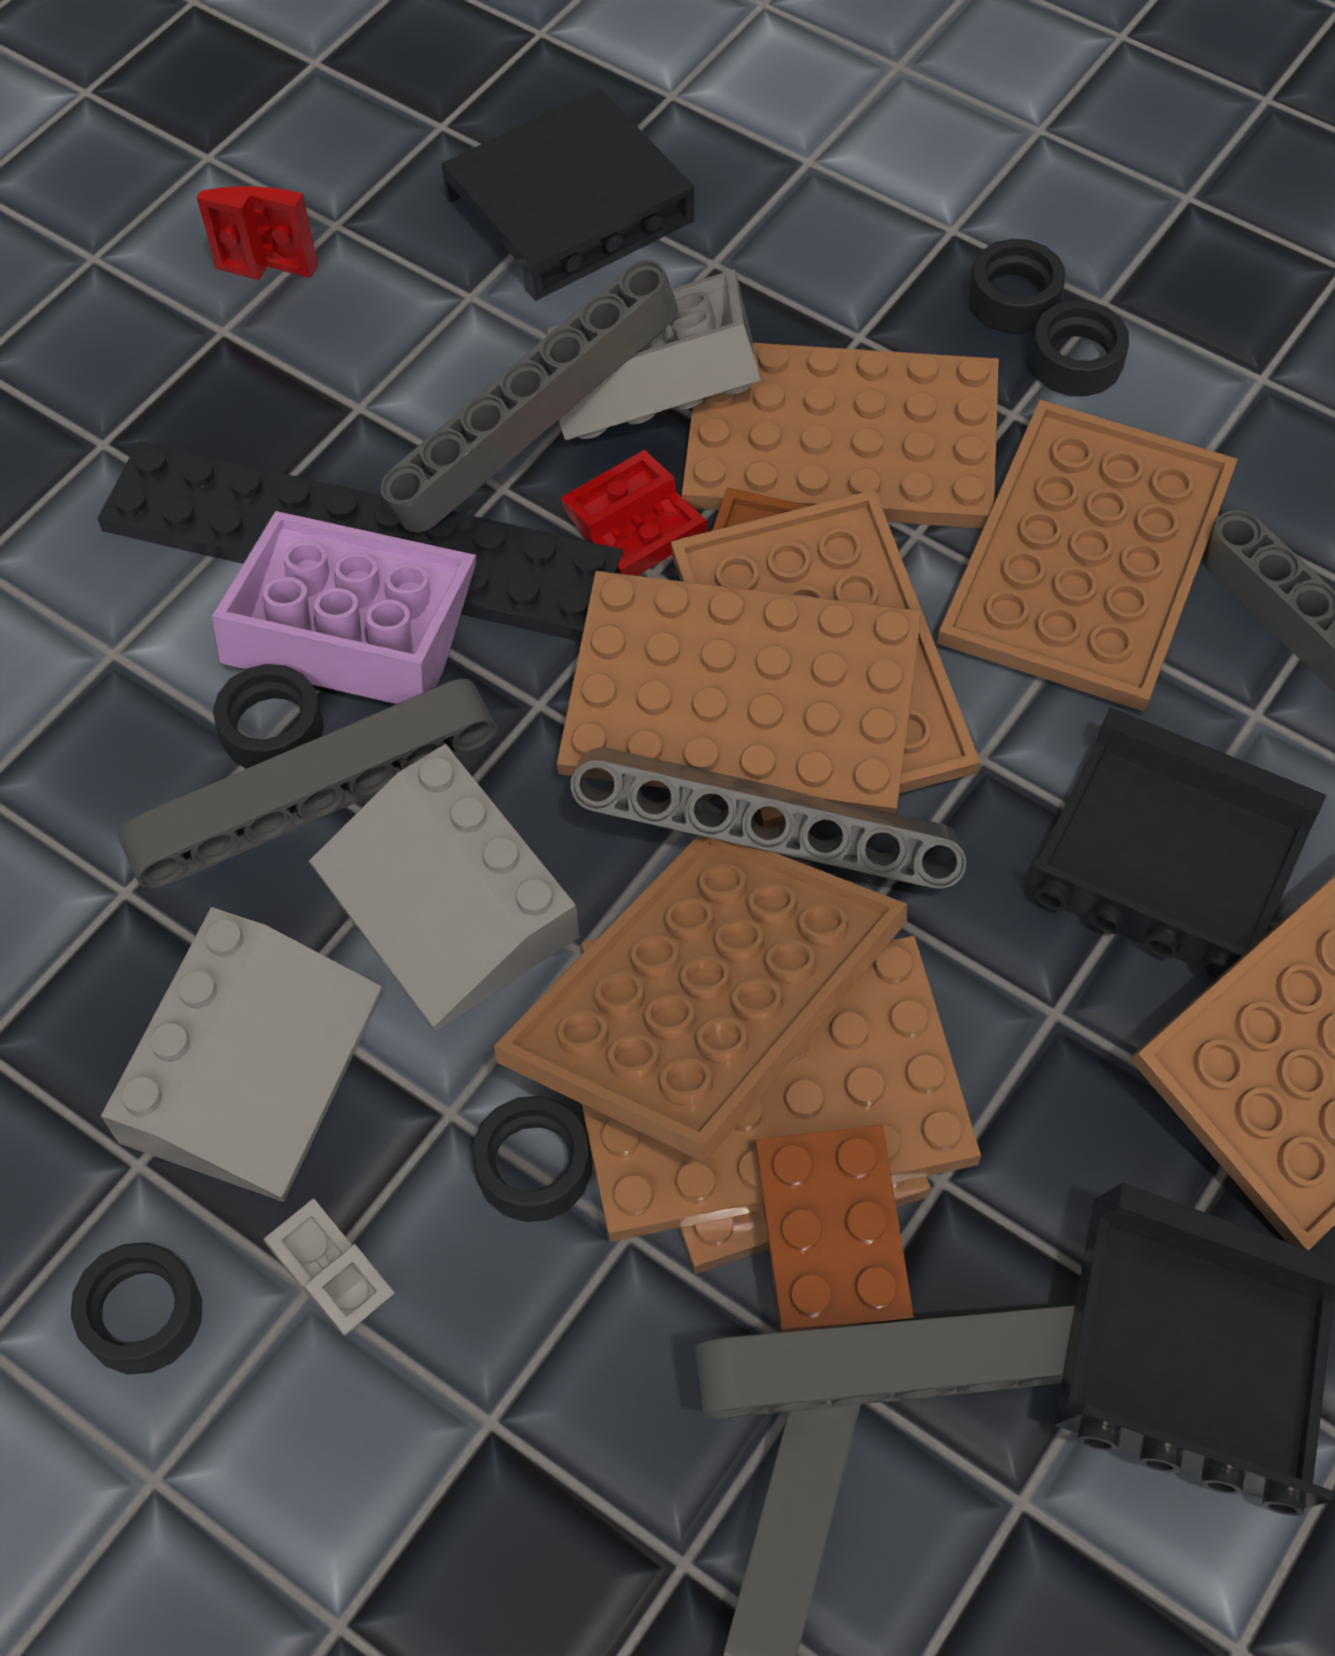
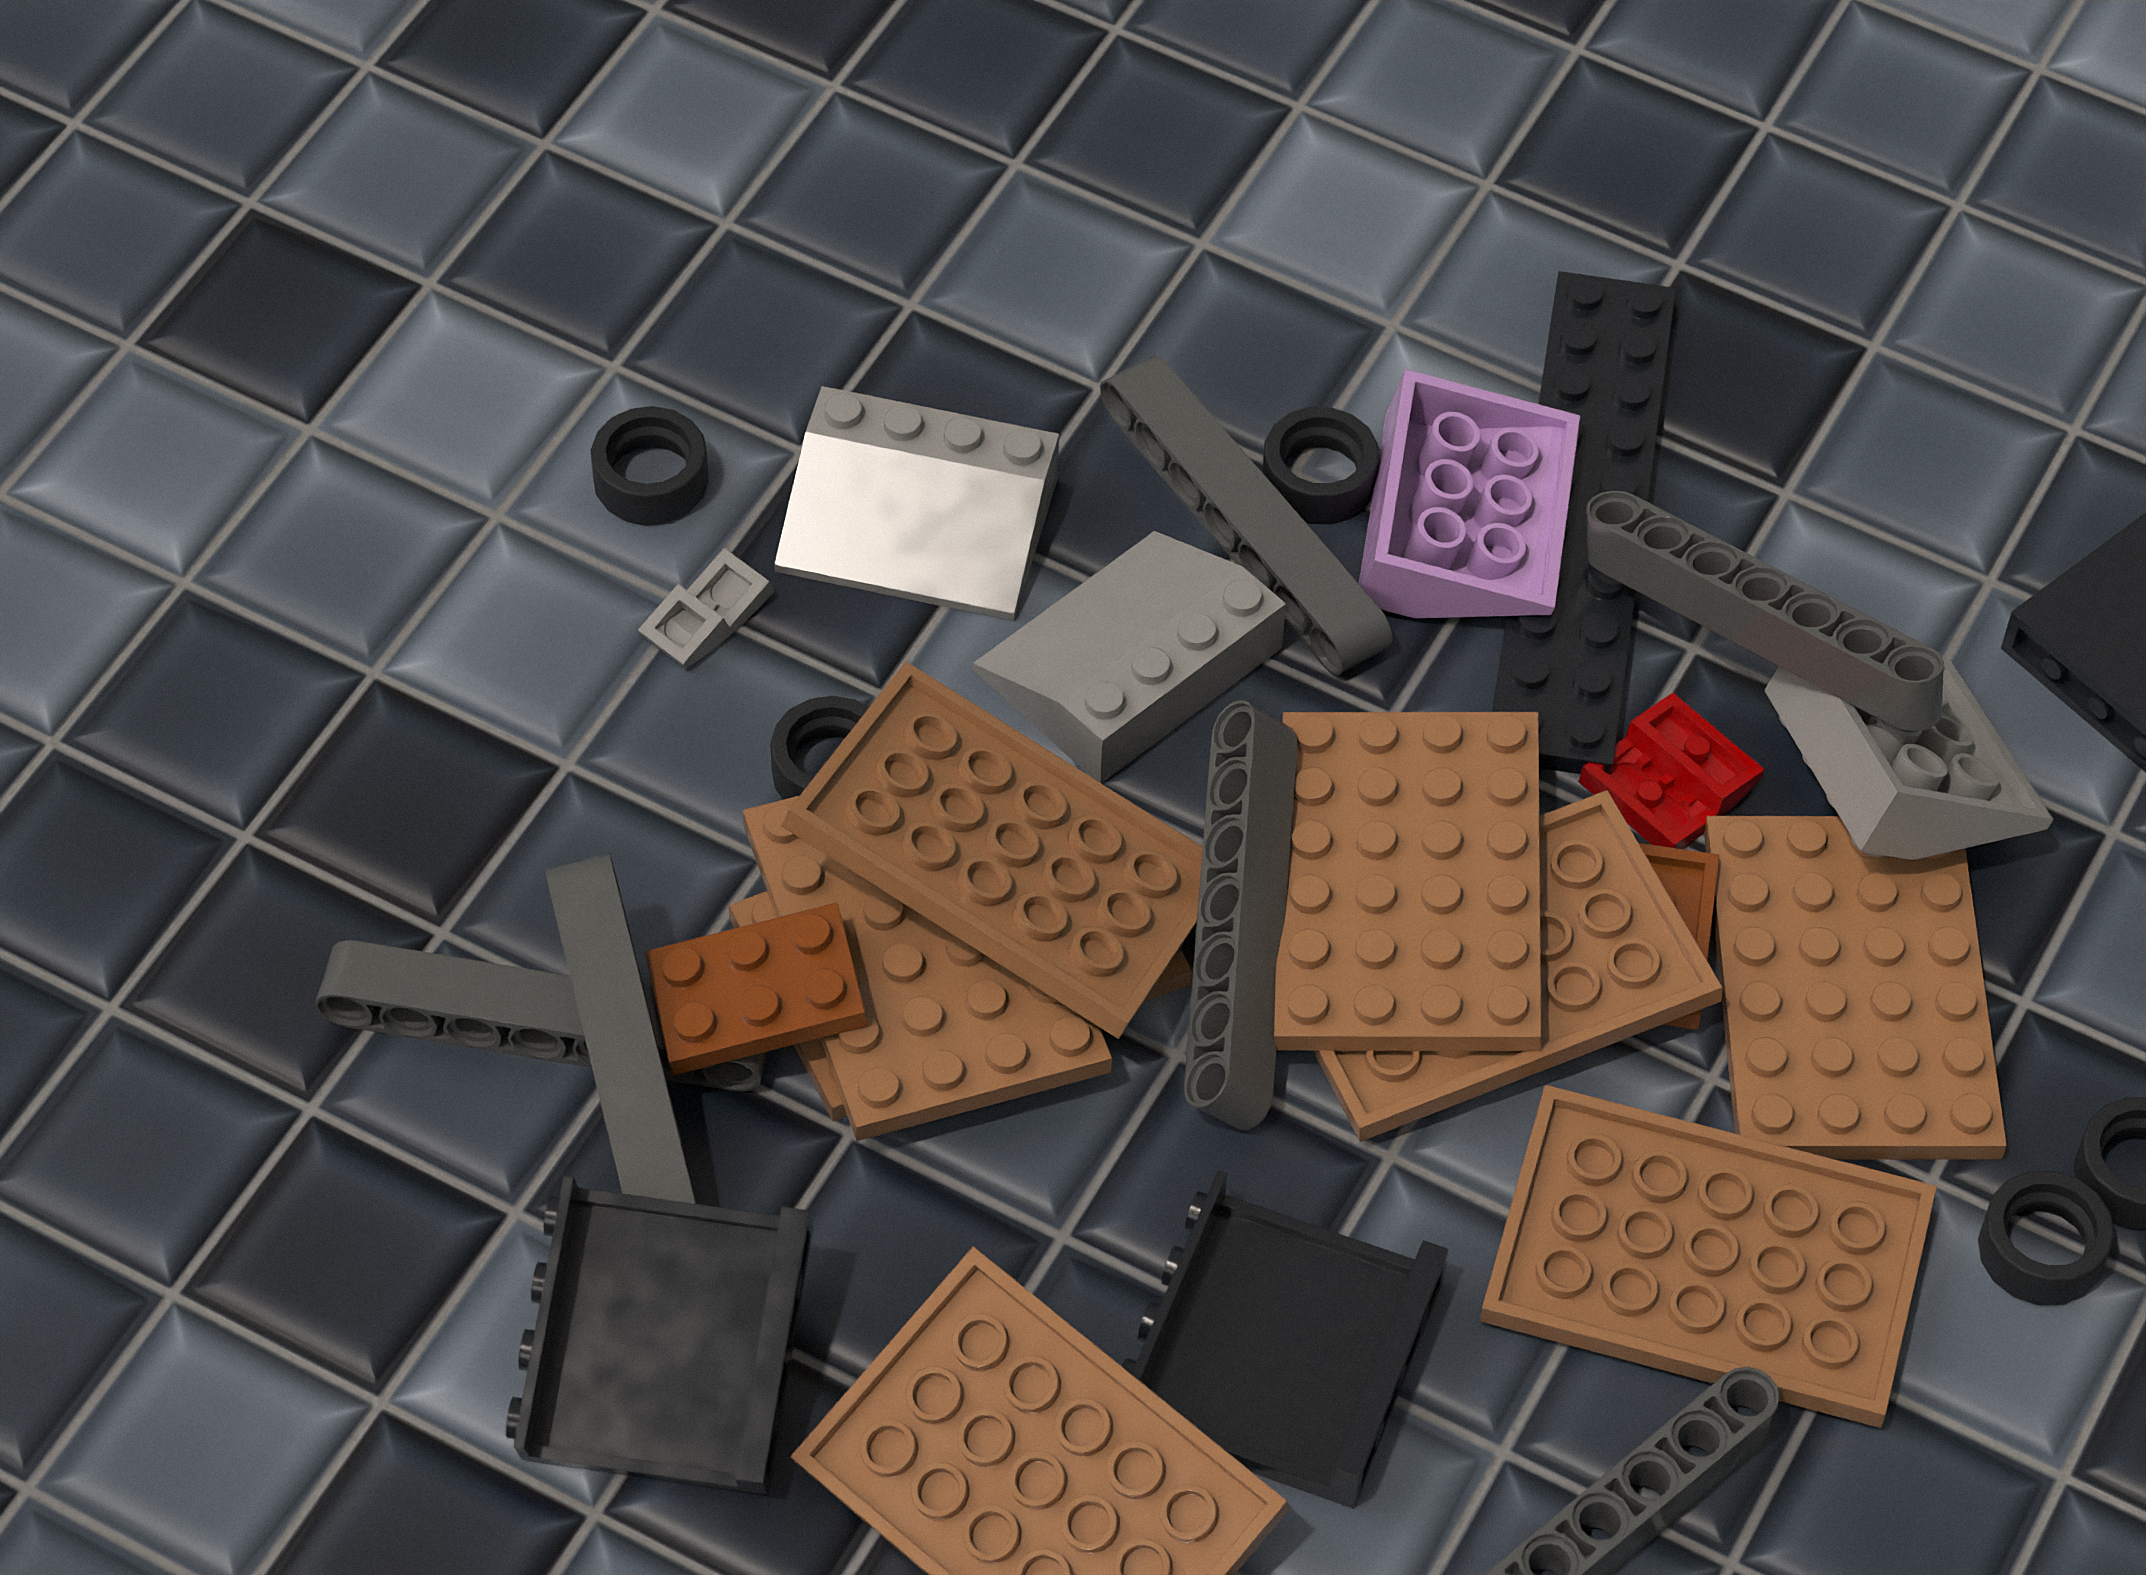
camera: 80 degrees right, 5 degrees down
(258, 230) = (1999, 333): red slope -> none

